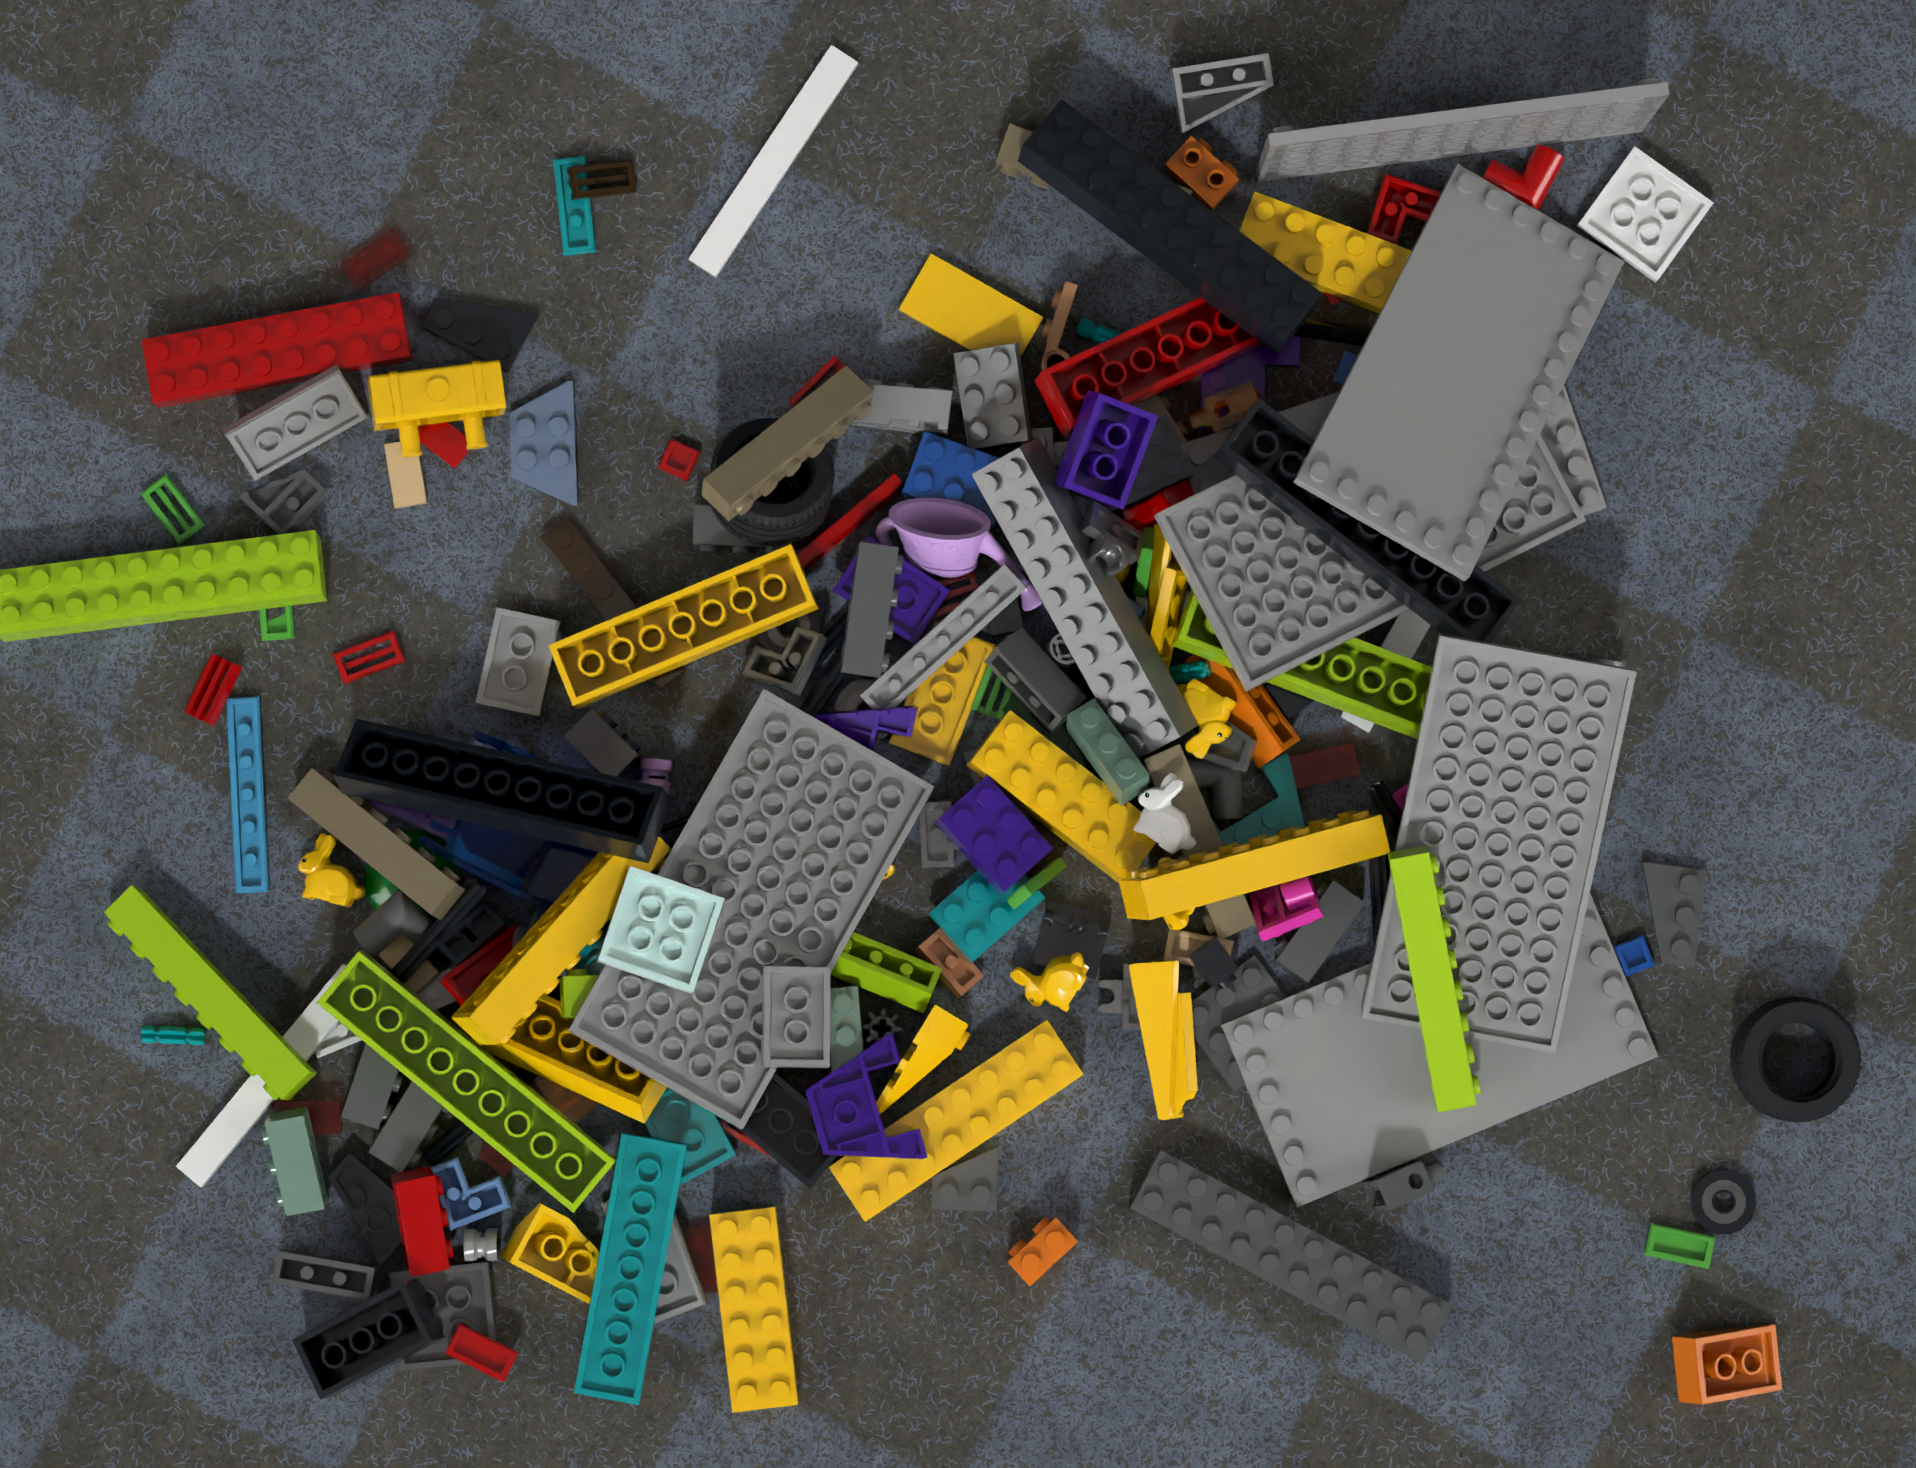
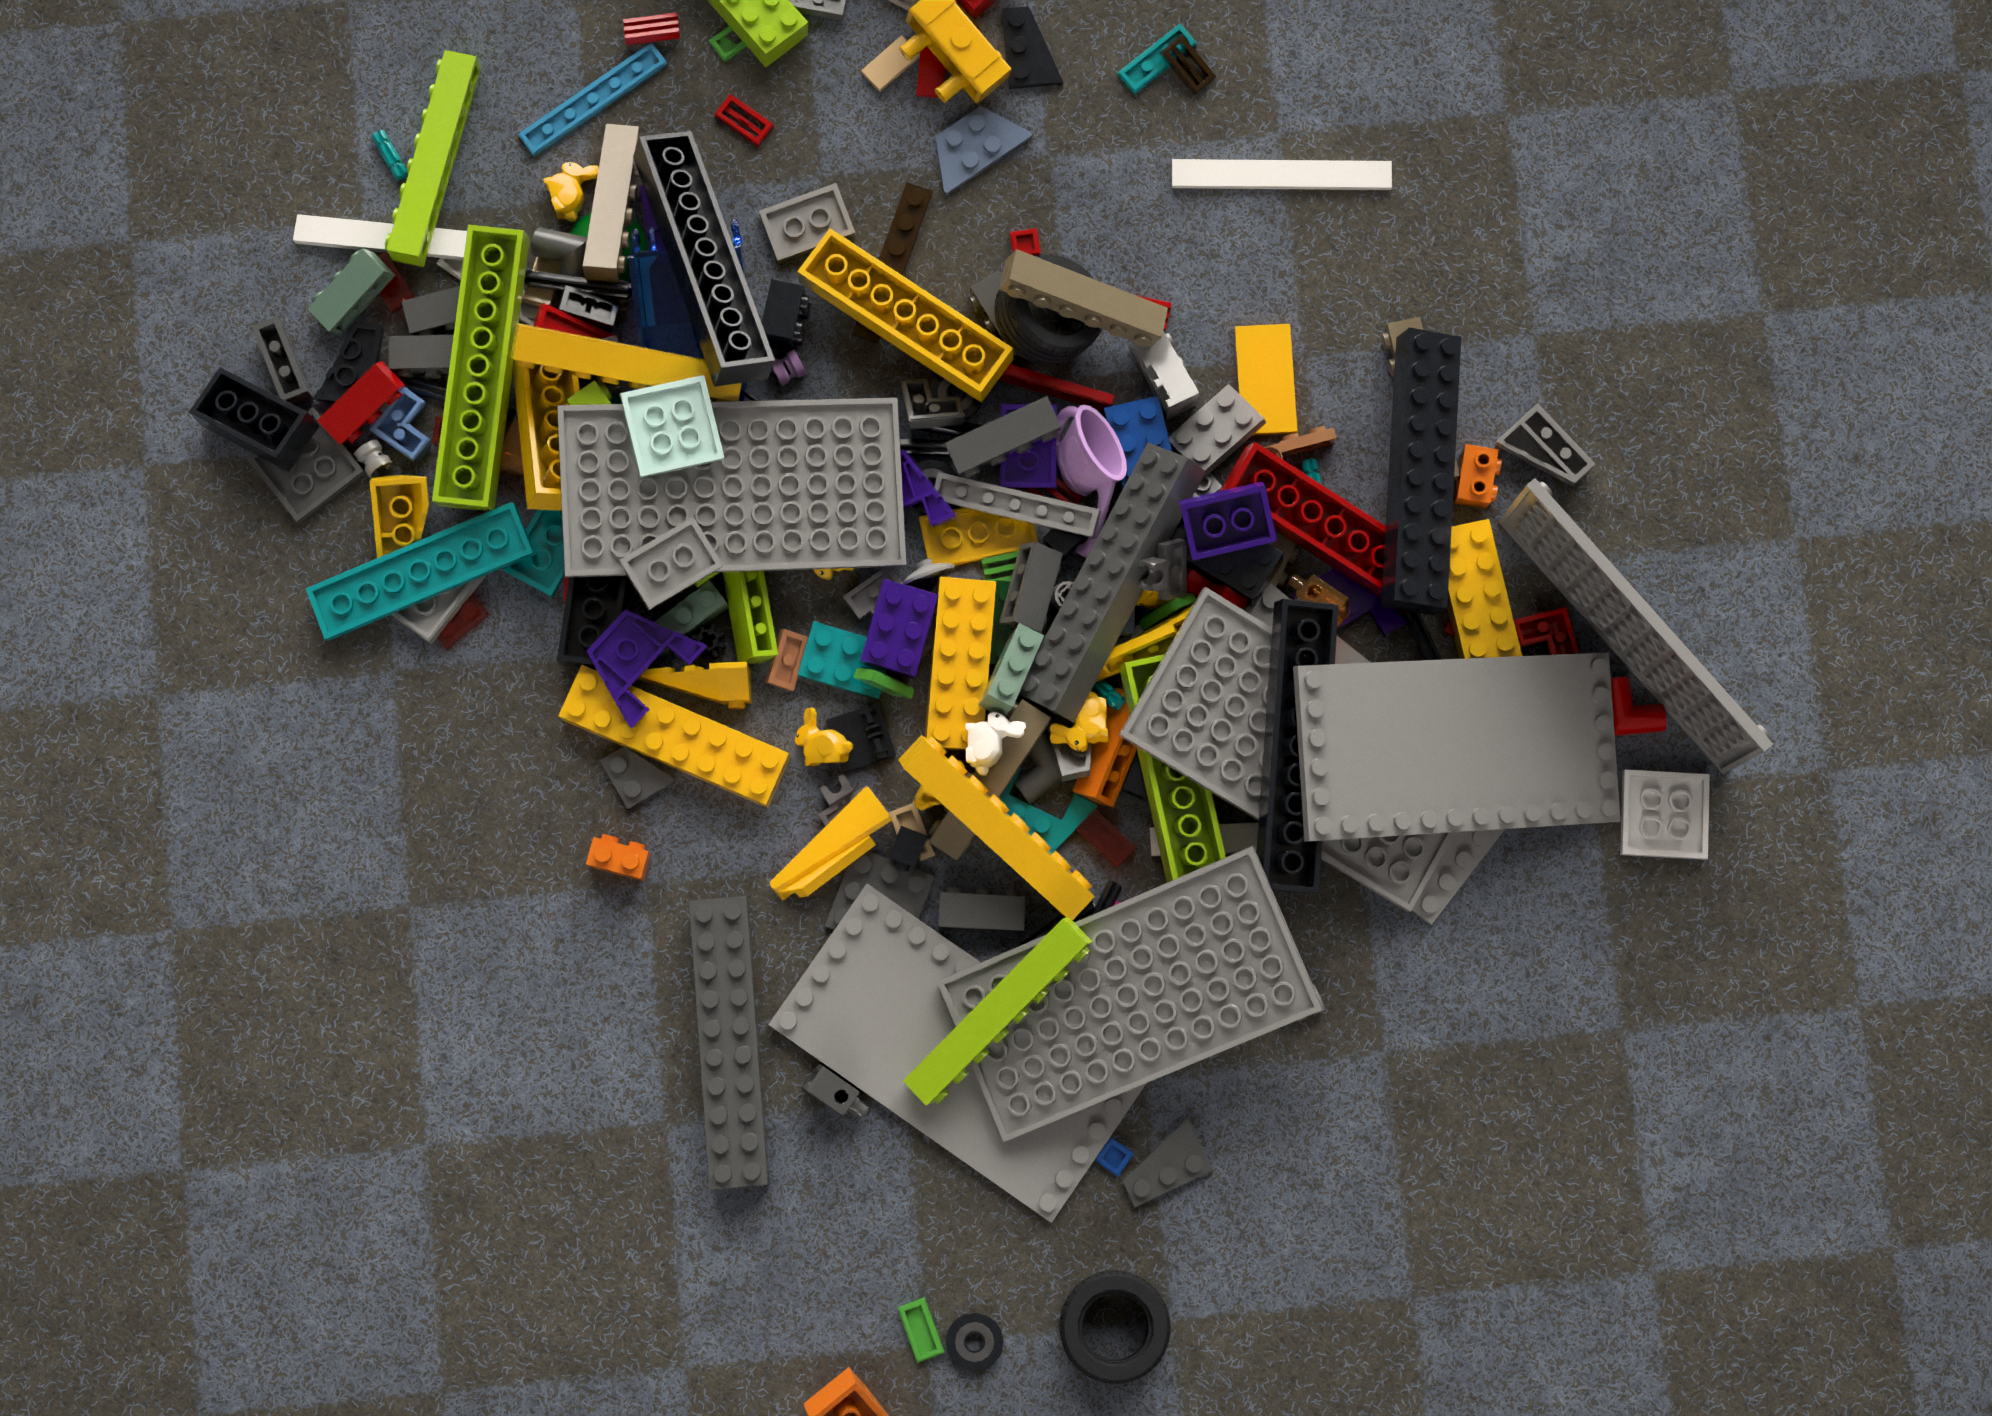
camera: 60 degrees right, 5 degrees down
(481, 1352) = (294, 506): red tile -> none
(754, 1309) = (446, 679): yellow brick -> none
(952, 770) = (926, 570): none -> light grey dish
(1285, 907) = (983, 873): dark pink plate -> none

